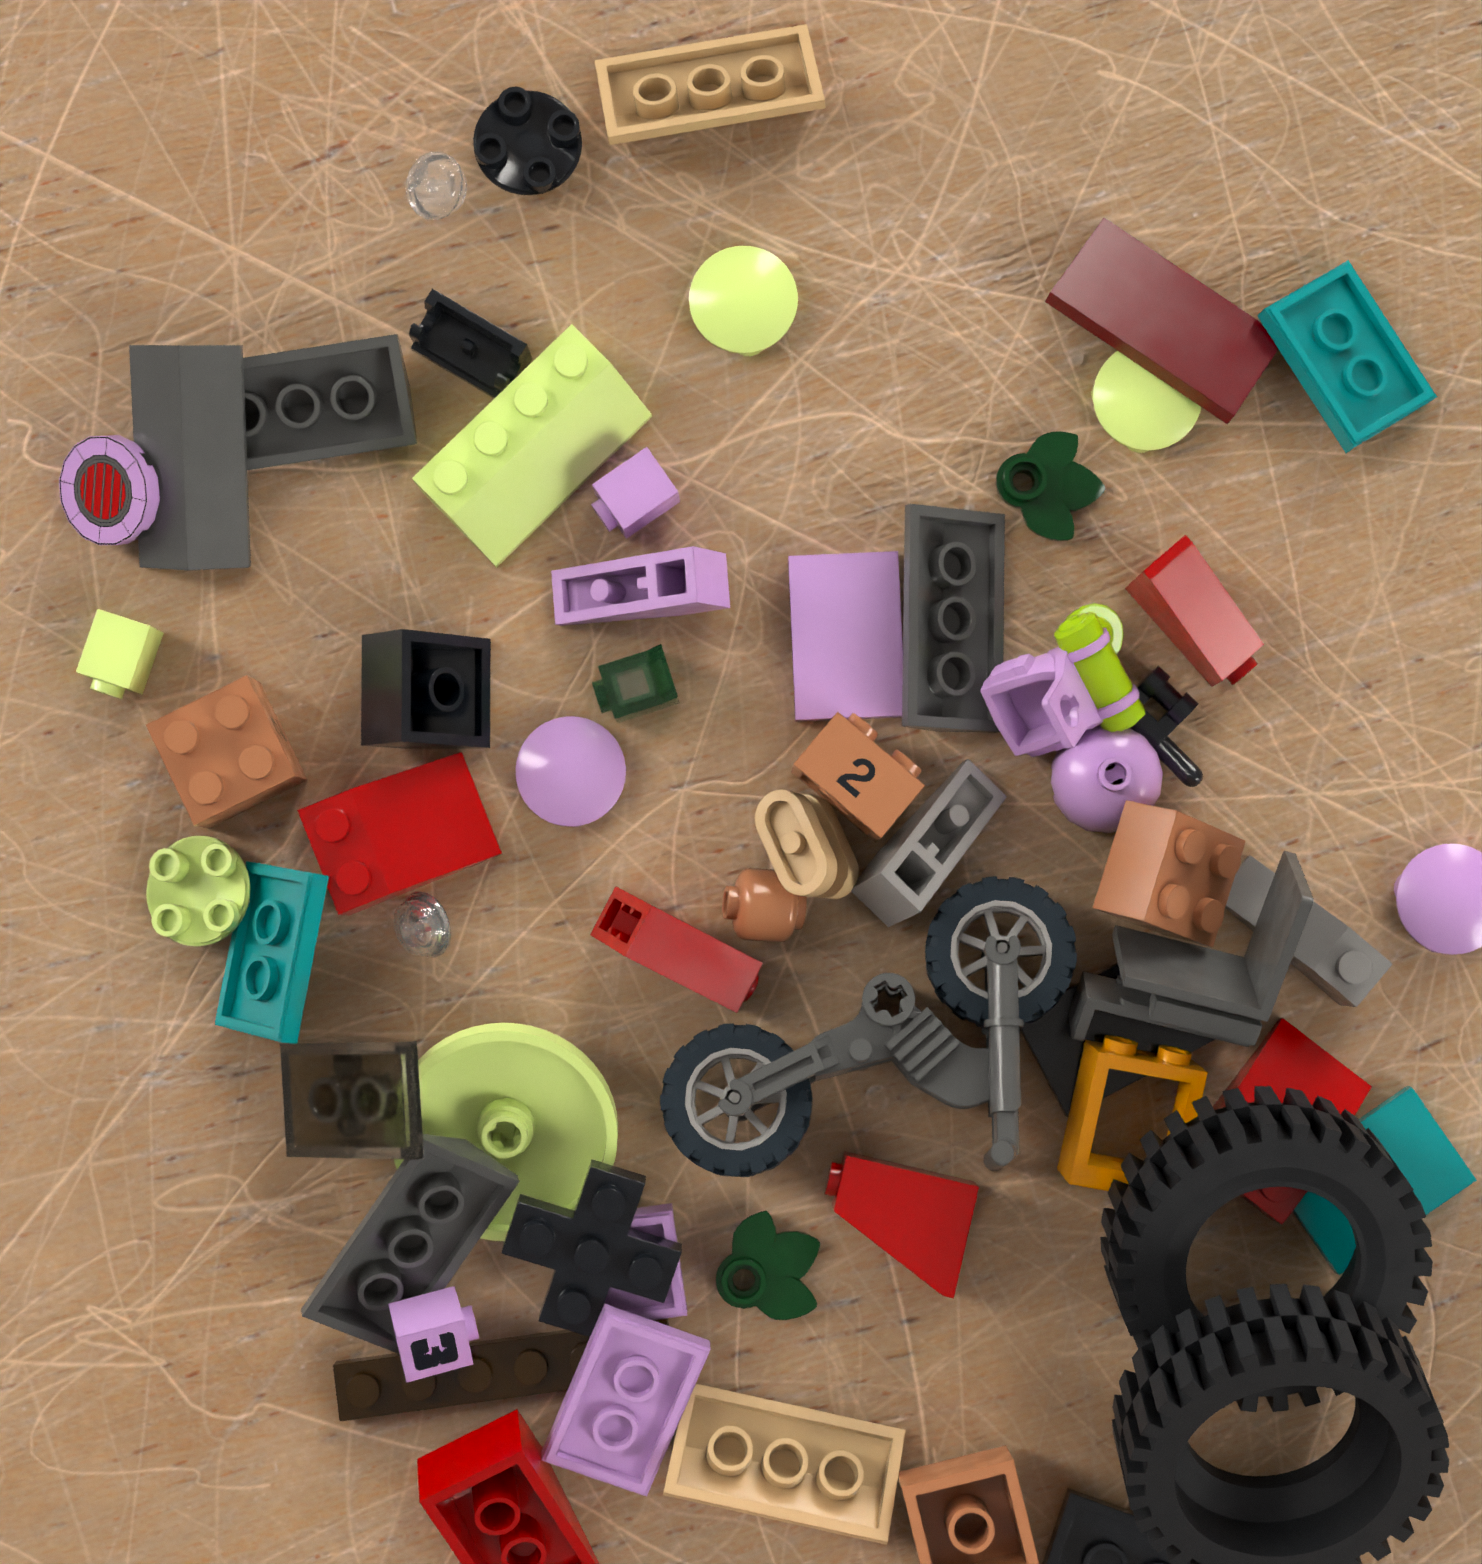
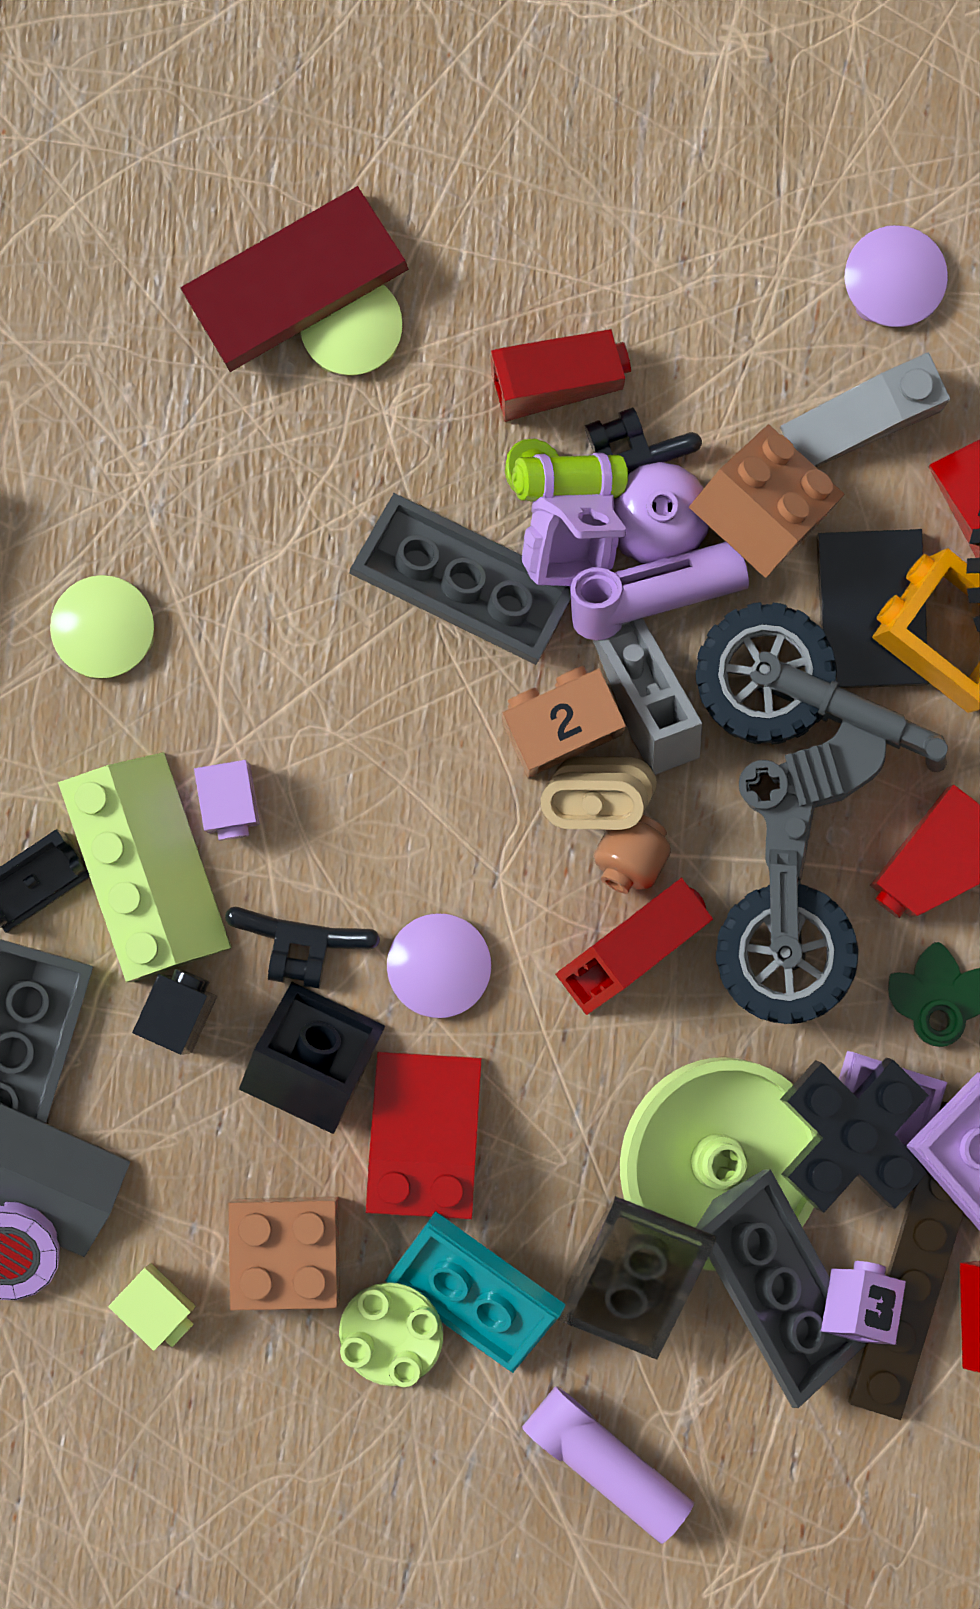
camera: 65 degrees left, 0 degrees up
(180, 1107) = (608, 1465): none -> lavender piece
(405, 539) = (176, 1011): none -> black brick
(422, 925) = (512, 1153): clear hat -> none
(536, 615) = (288, 932): none -> black piece
(636, 685) = (392, 874): clear green window -> none
(642, 587) = (310, 831): lavender slope -> none
(846, 635) = (434, 676): lavender tile -> none
(999, 766) = (608, 599): none -> lavender piece
(1057, 485) = (391, 437): dark green plate -> none
(1200, 986) = (871, 521): dark grey piece -> none
(1346, 356) = (397, 141): teal tile -> none

